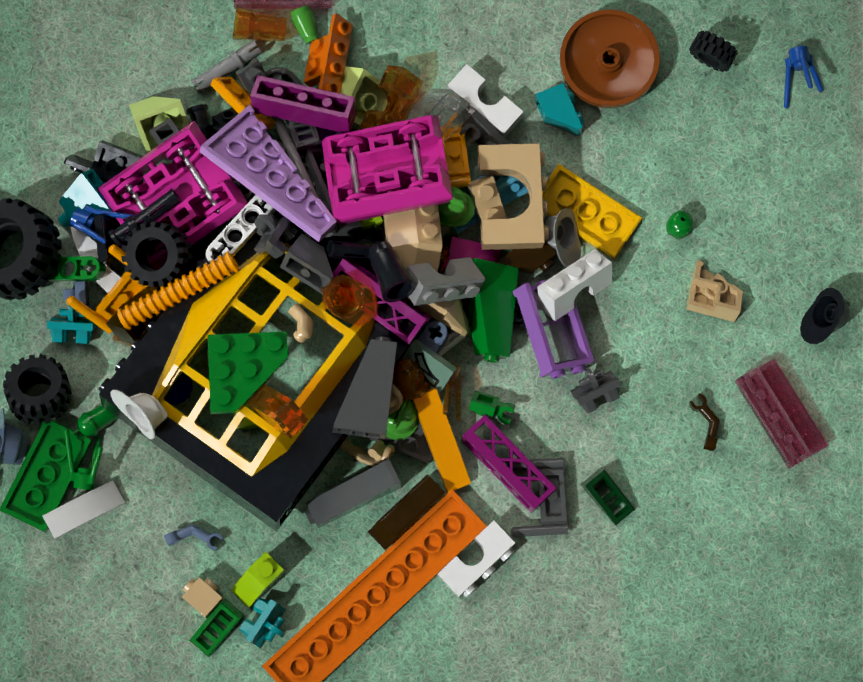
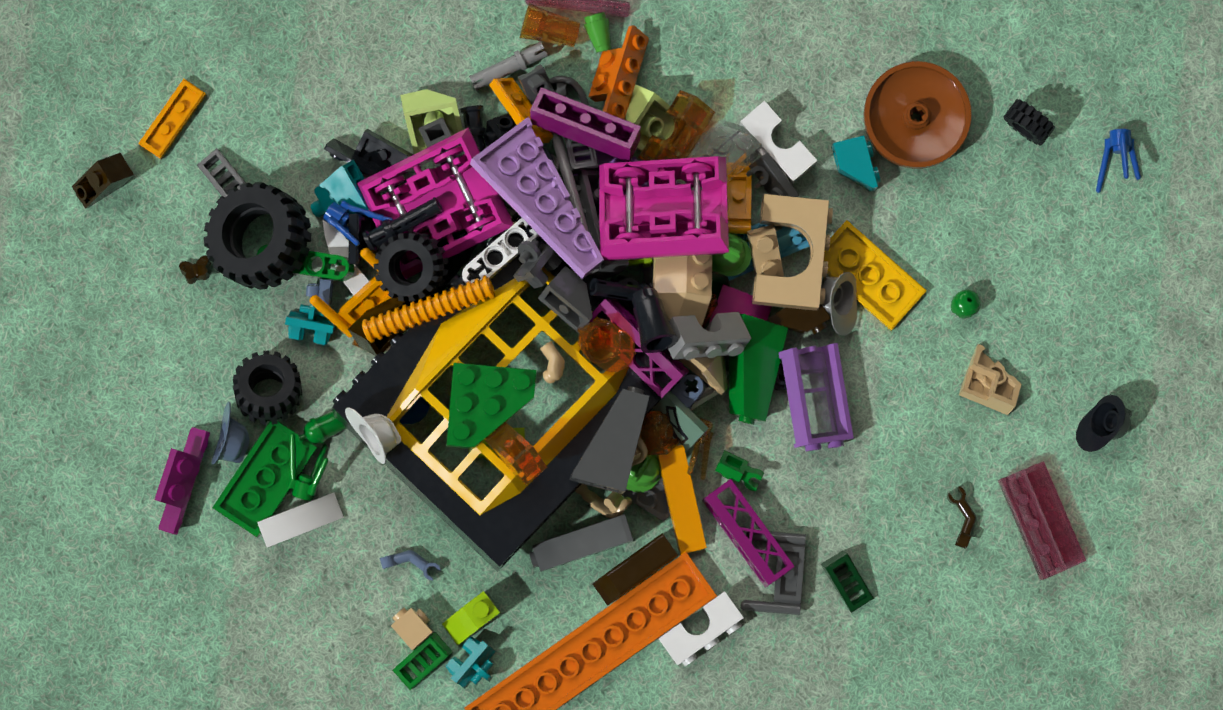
camera: 10 degrees right, 5 degrees up
(558, 293) = (826, 362): white arch -> none
(595, 386) = (850, 465): dark grey hips -> none

